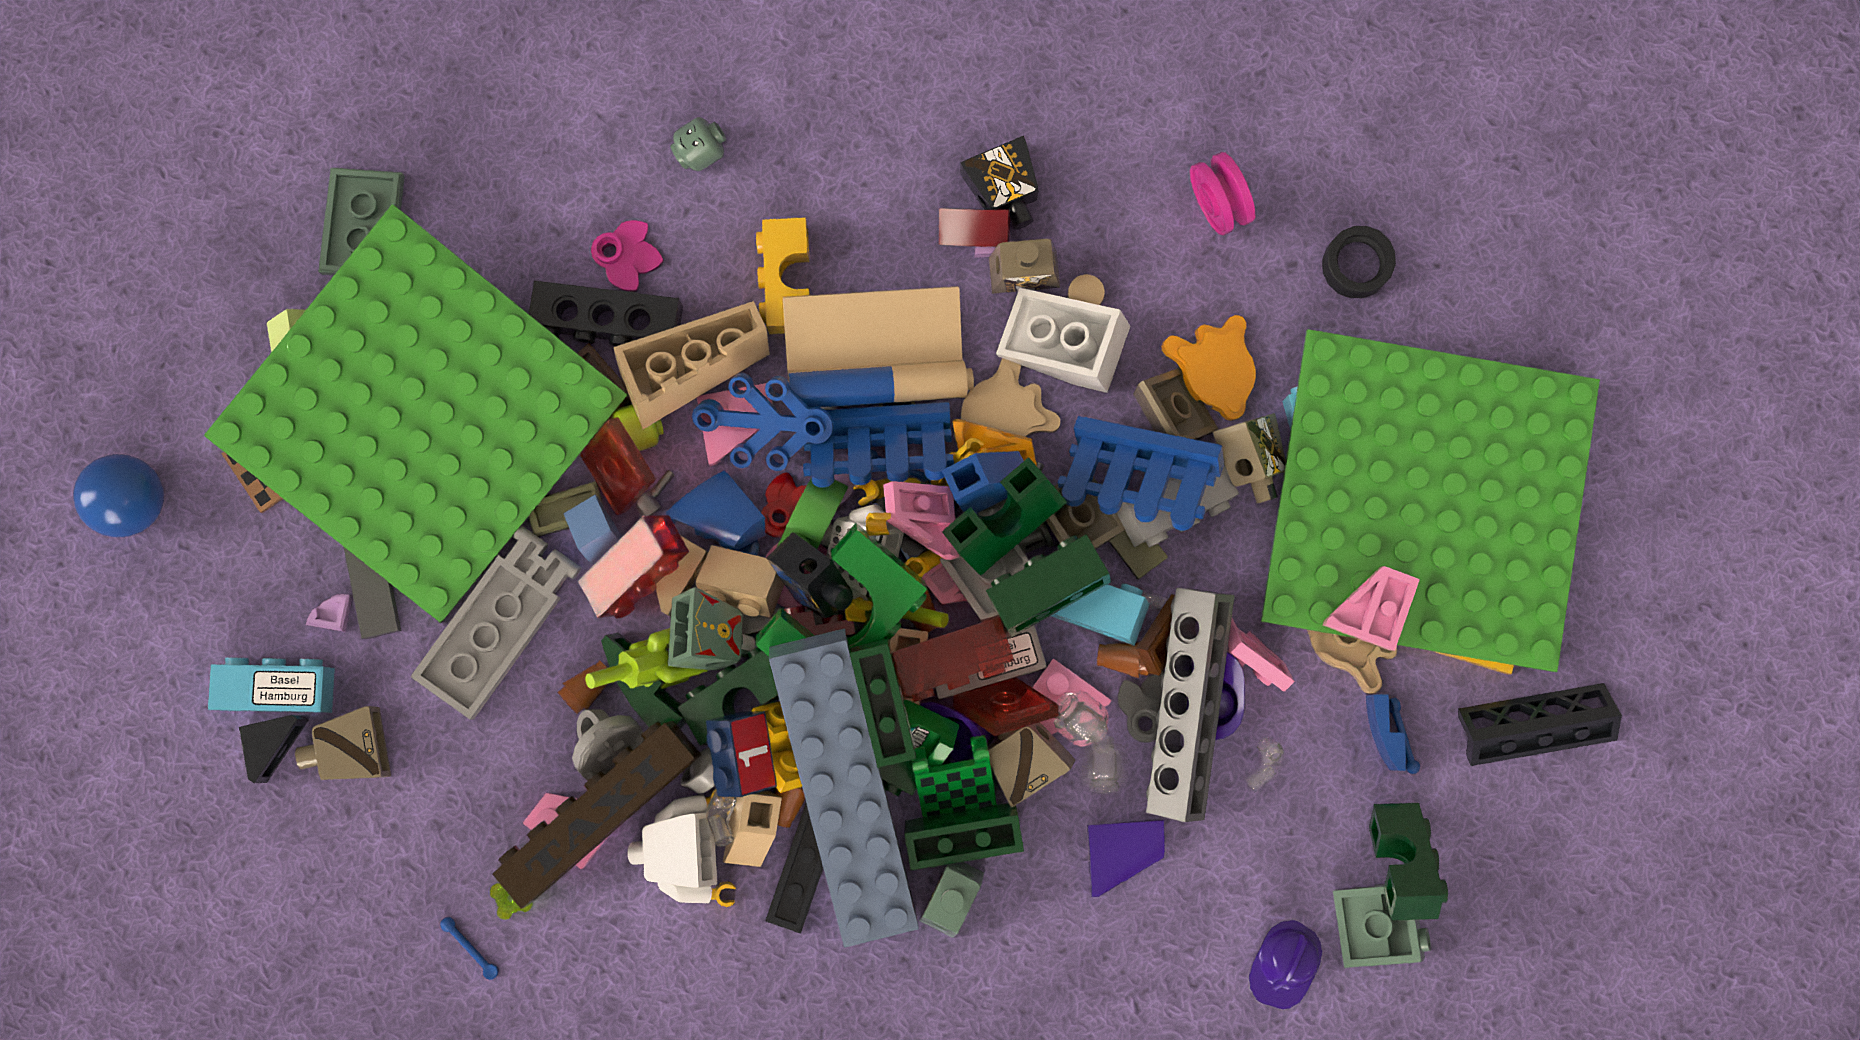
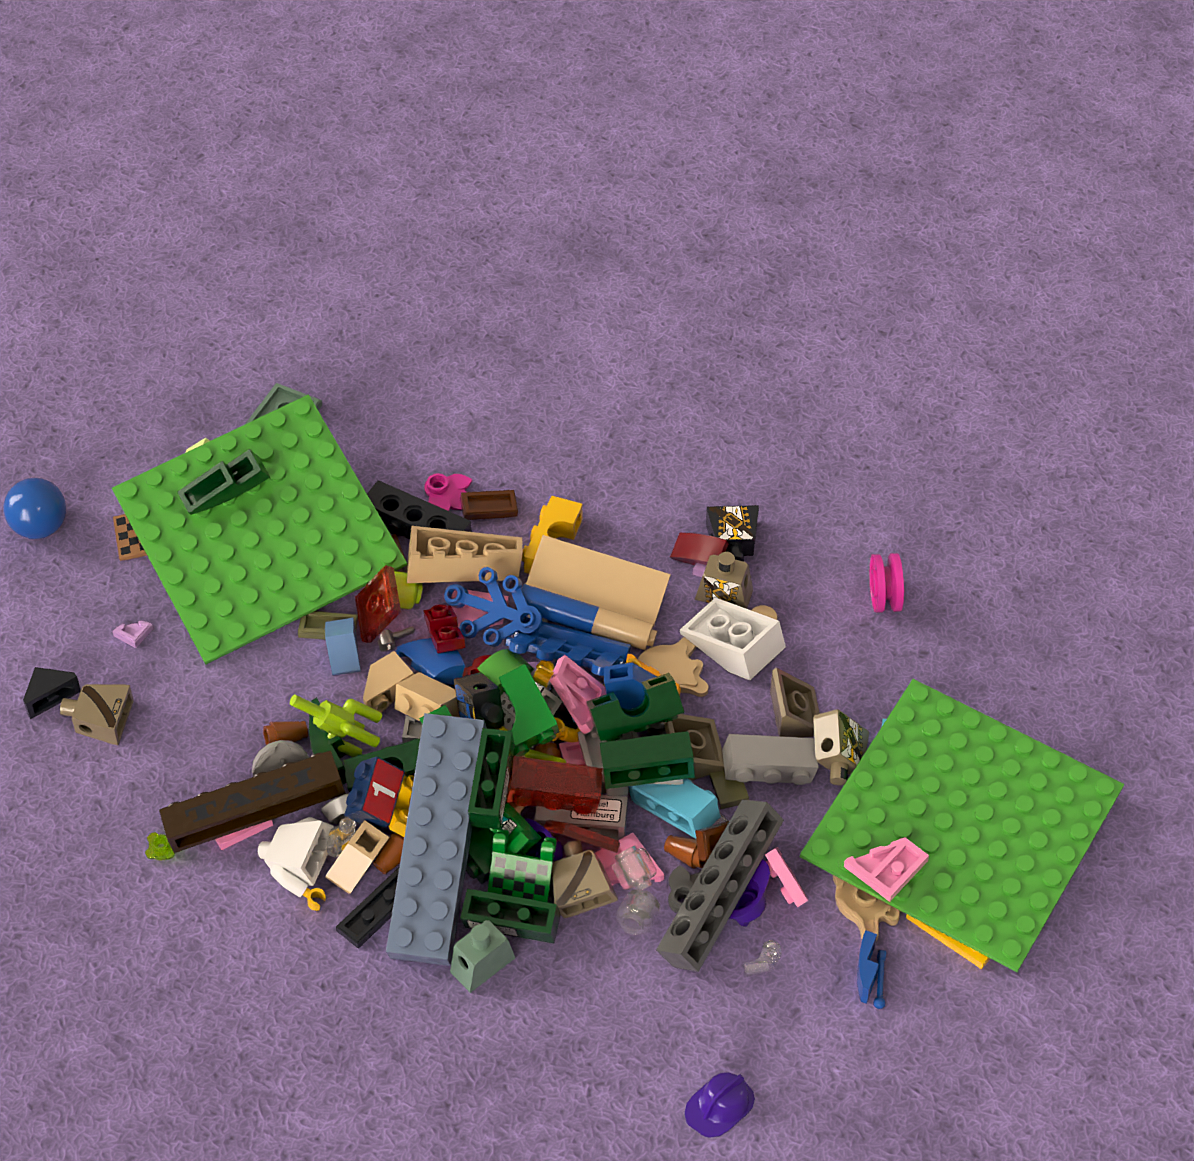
camera: 20 degrees right, 30 degrees down
(271, 686) = (58, 651): medium azure brick -> none
(347, 383) = (223, 483): none -> dark green slope
(372, 599) = (166, 632): dark grey tile -> none
(490, 971) = (119, 890): blue hinge -> none
(495, 624) = (242, 674): light grey hinge -> none
(634, 566) = (357, 660): clear red brick -> none
(685, 254) = (489, 504): none -> reddish brown tile
(698, 144) = (530, 444): sand green head -> none
(706, 632) = (387, 715): sand green torso -> none
(713, 468) = (444, 628): none -> dark red slope
(1122, 851) = (627, 975): dark purple slope -> none
(1147, 451) = (759, 712): blue fence -> none
(1216, 366) = (838, 688): light orange tile -> none
(1370, 935) = (807, 1095): sand green plate -> none
(1377, 242) = (967, 679): black tyre -> none
(1414, 887) = (842, 1044): dark green arch -> none
(1543, 730) = (991, 1008): black fence -> none

